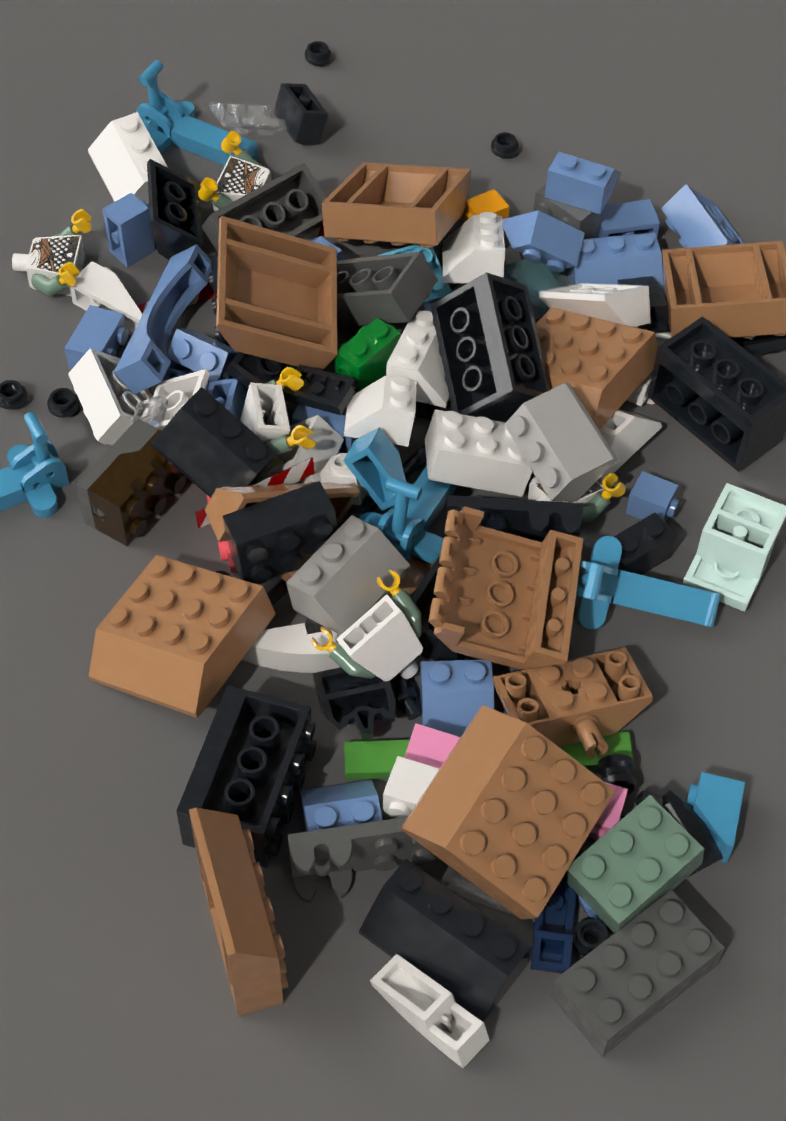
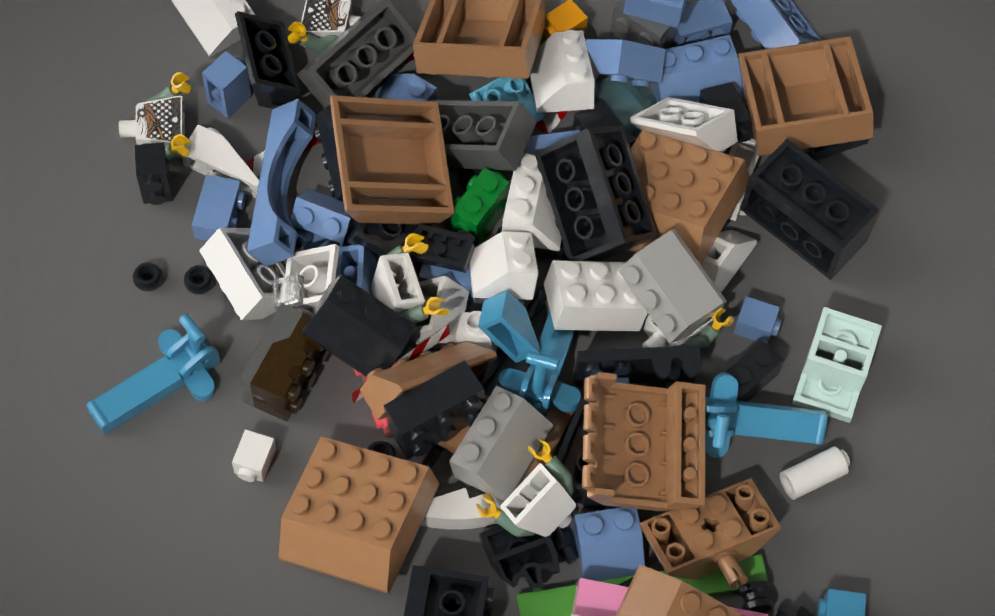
camera: 10 degrees left, 10 degrees up
(36, 298) = (153, 173): none -> black brick
(82, 571) = (253, 456): none -> white brick
(699, 654) = (815, 472): none -> white brick

